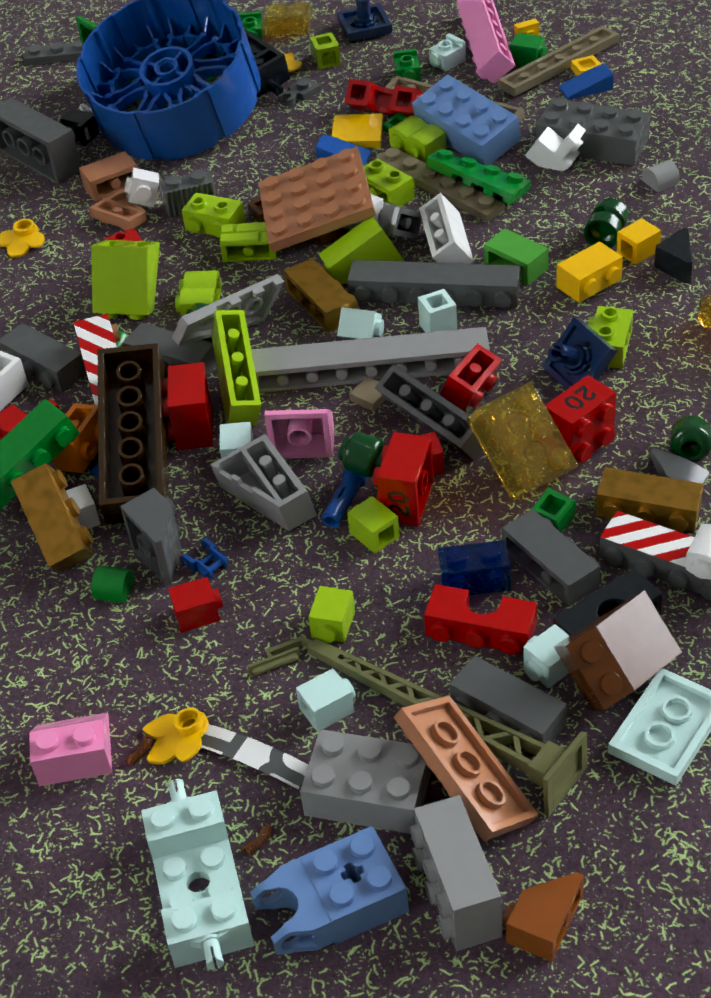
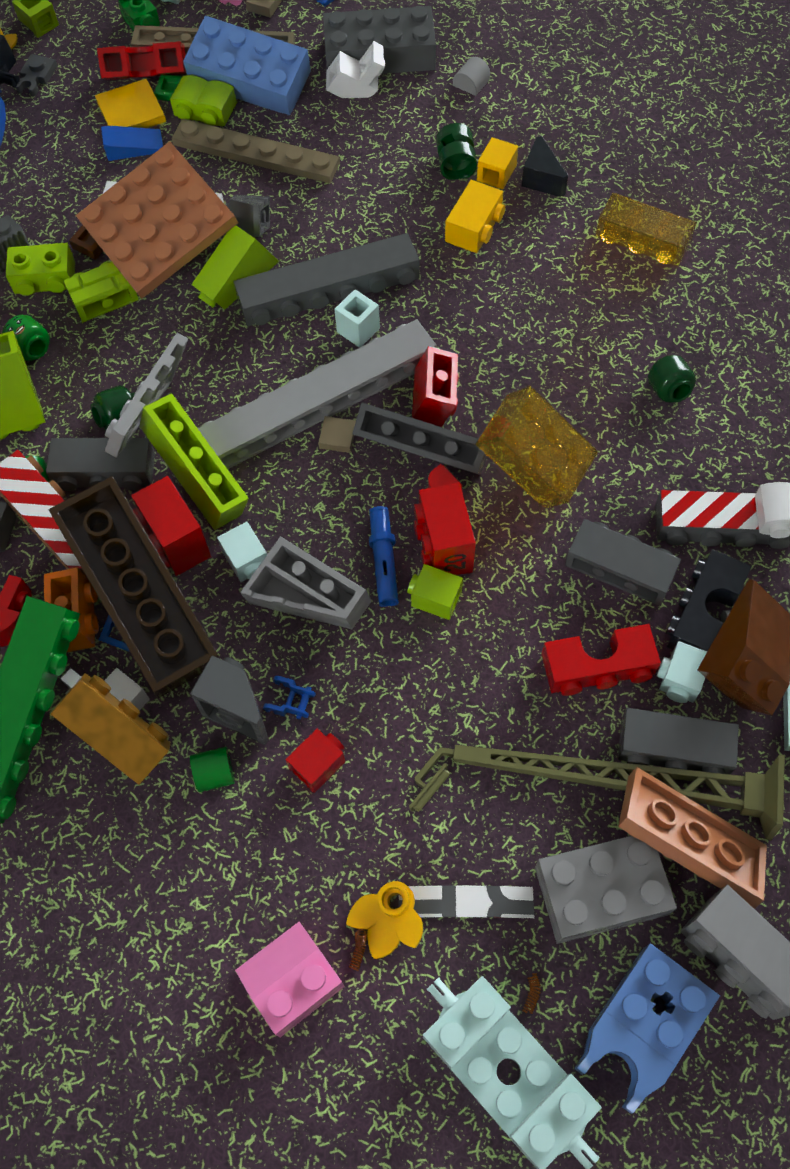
camera: 30 degrees left, 20 degrees up
(172, 256) = (31, 336): none -> green head
(198, 288) = (85, 372): lime brick -> none
(301, 432) = (304, 510): bright pink slope -> none
(318, 293) = (219, 332): pearl gold brick -> none
(326, 699) = (510, 812): light aqua brick -> none
(331, 614) = (459, 714): lime brick -> none
(359, 324) = (286, 358): light aqua brick -> none
(361, 453) = (392, 521): dark green head -> none
(389, 183) = (214, 167): lime brick -> none
(445, 232) = (307, 215): white brick -> none
(476, 567) = (563, 606): clear blue brick -> none
(494, 181) = (295, 130): green wing -> none
(516, 250) = (389, 216): bright green brick -> none
(556, 508) = (594, 505): green brick -> none
(573, 356) = (509, 332): dark blue plate -> none
(585, 416) = (577, 390): red brick -> none
(616, 328) = (533, 286): lime brick -> none
(651, 498) = (673, 462): pearl gold brick -> none
(676, 467) = (678, 419): dark grey slope -> none

